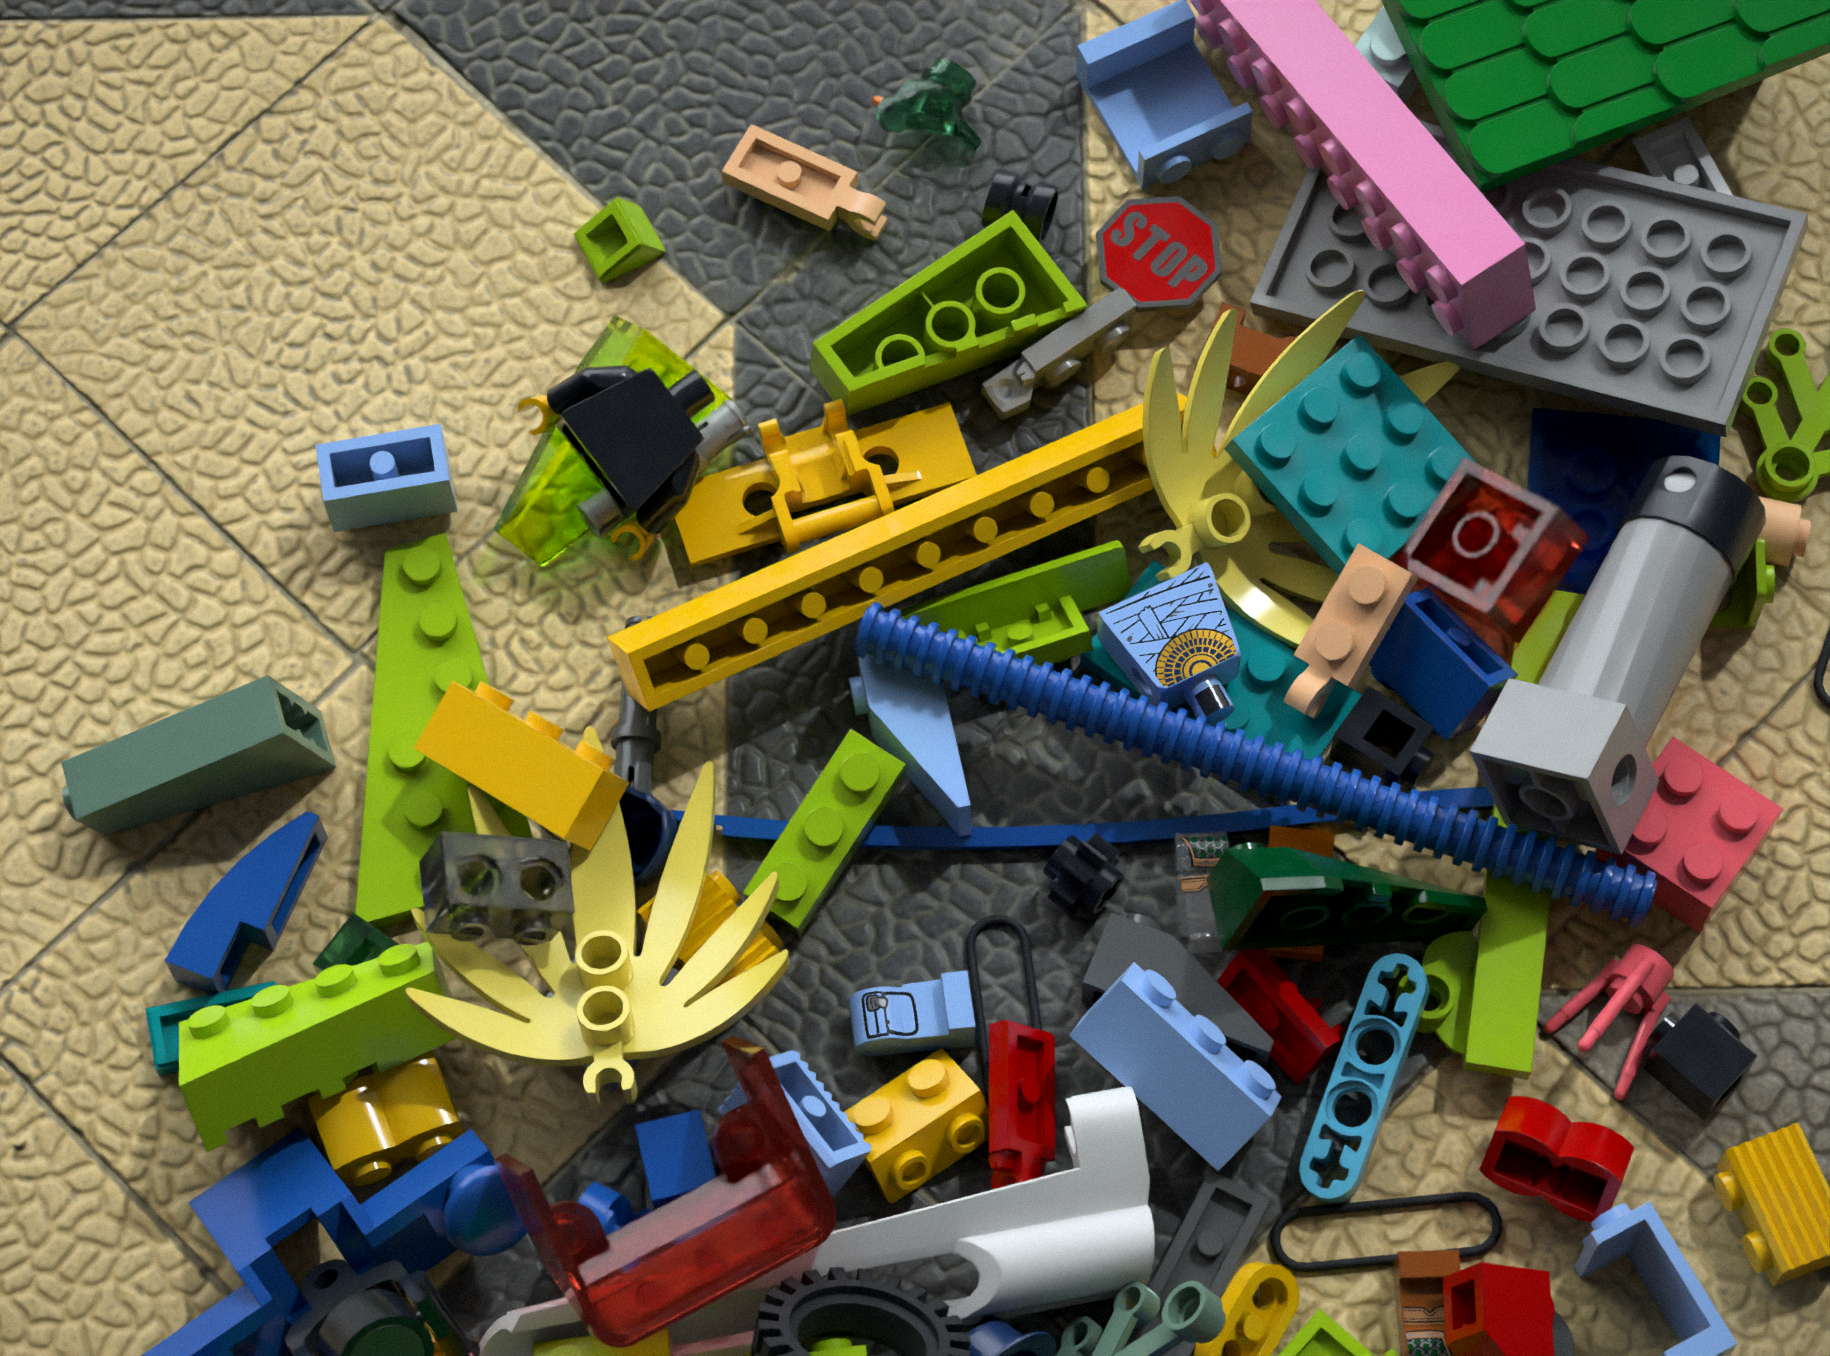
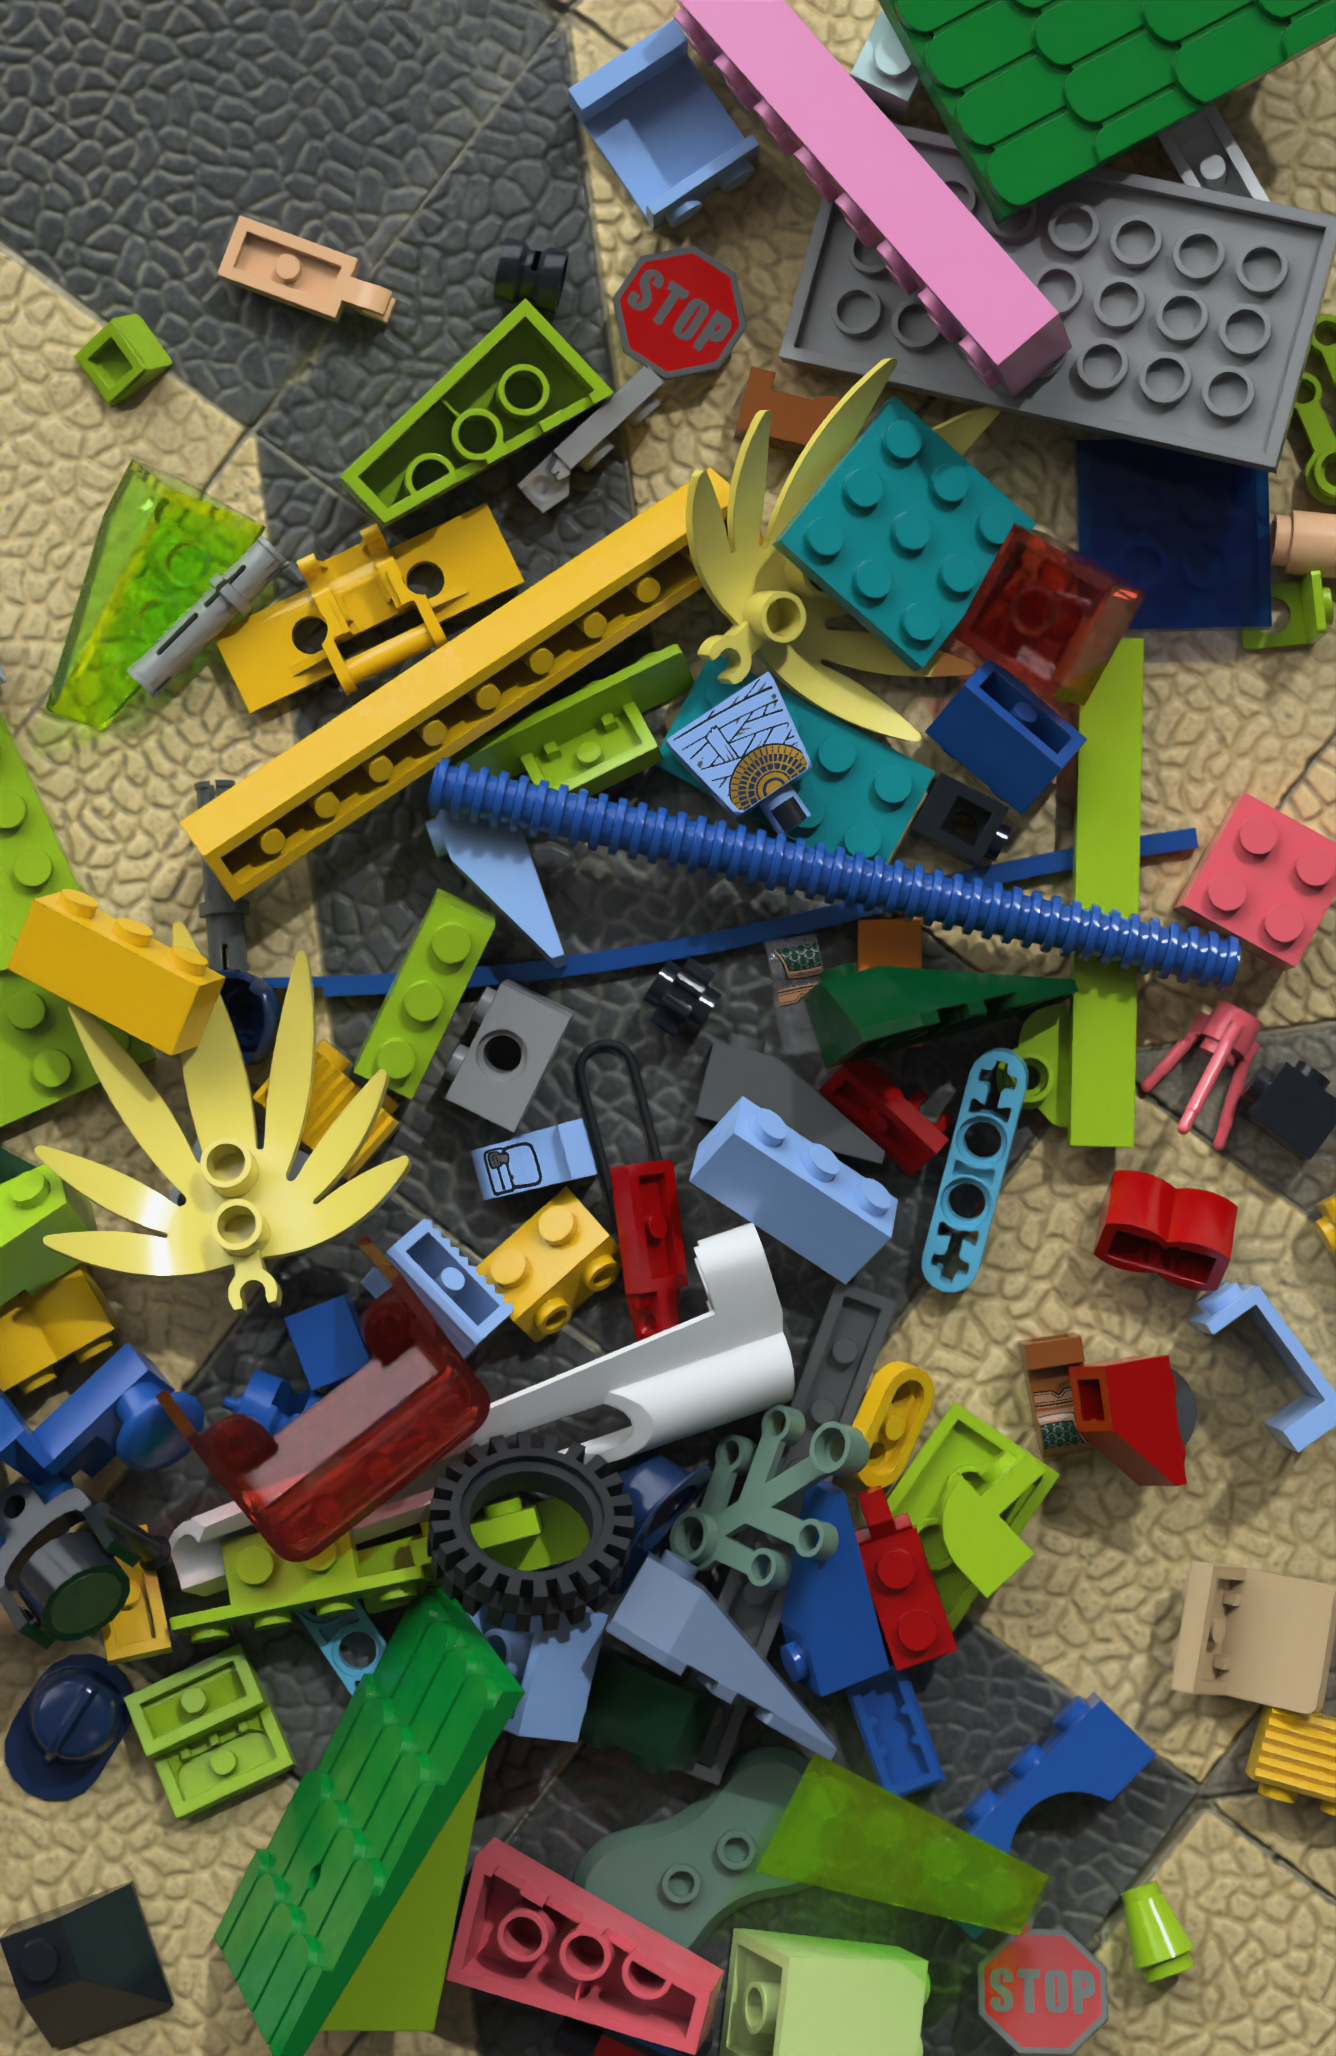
camera: 10 degrees left, 20 degrees up
(496, 874) = (108, 1101): clear smoke brick -> none
(631, 439) = (170, 605): black torso -> none
(899, 944) = (501, 1092): none -> light grey brick
(931, 103) = (423, 166): clear green animal -> none
(1348, 627) = (916, 719): light nougat plate -> none
(1380, 1205) = (1017, 1334): black piece -> none
(1573, 746) = (1154, 823): light grey piece -> none

